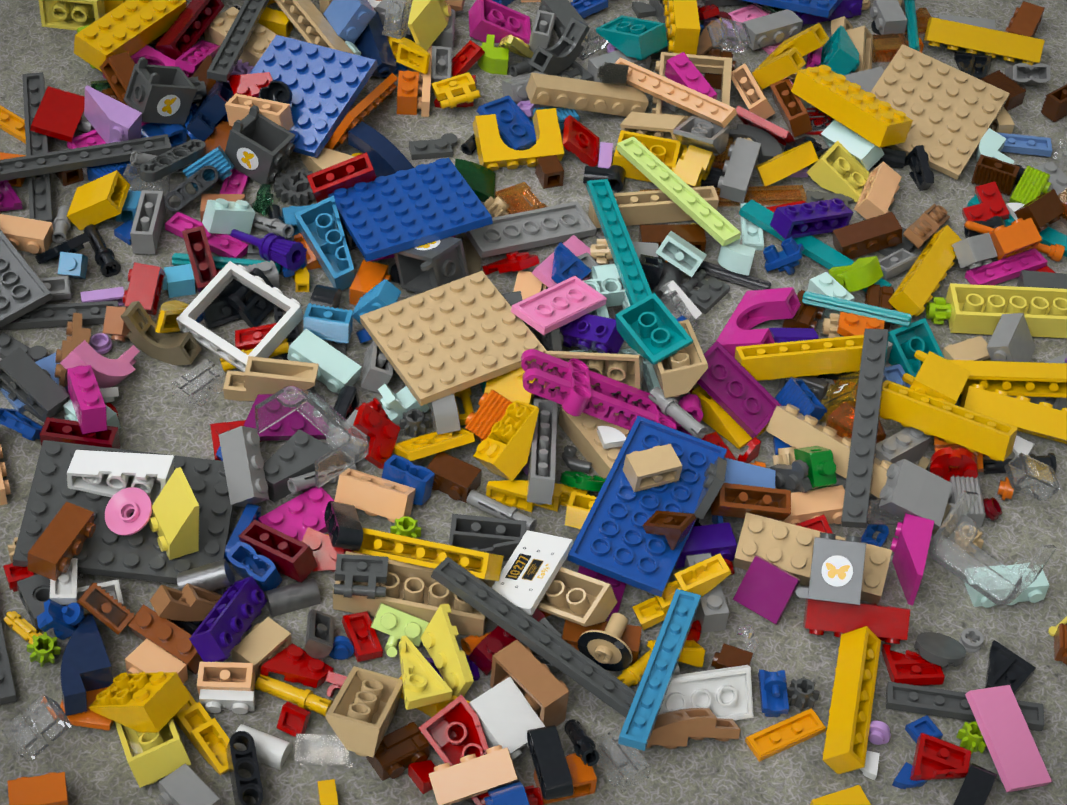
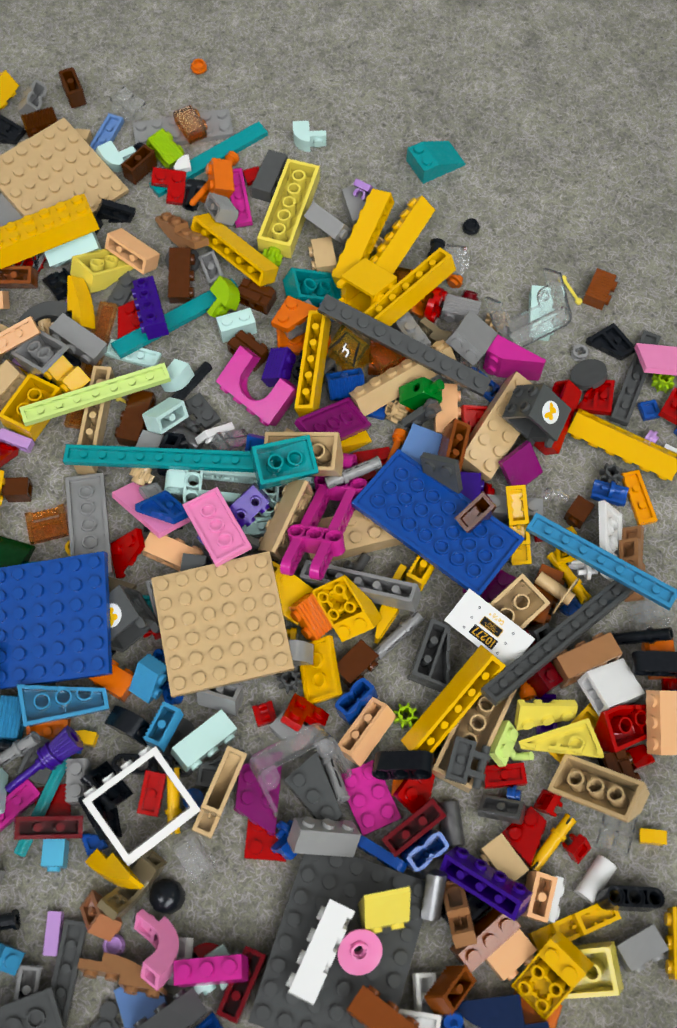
camera: 70 degrees left, 20 degrees up
(144, 286) = (62, 890): brick -> none
(157, 373) = (167, 896): none -> black hair
(346, 401) = (256, 735): black brick -> none
(398, 403) = (268, 689): light aqua brick -> none
(496, 207) = (51, 546): tan gear -> none
(582, 481) = (388, 563): green tile -> none
(610, 437) = (360, 530): white tile -> none
(614, 174) = (41, 444): black piece -> none
(652, 467) = (414, 508): tan brick -> none
(749, 118) = (29, 303): tile -> none
(752, 452) = (380, 436): red tile -> none
(784, 259) = (184, 342): blue hips -> none
(830, 325) = (268, 333): tan gear -> none
(856, 308) = (268, 310): teal axle -> none
(1022, 446) = (414, 256): white tile -> none
(1042, 210) = (194, 150): reddish brown brick -> none

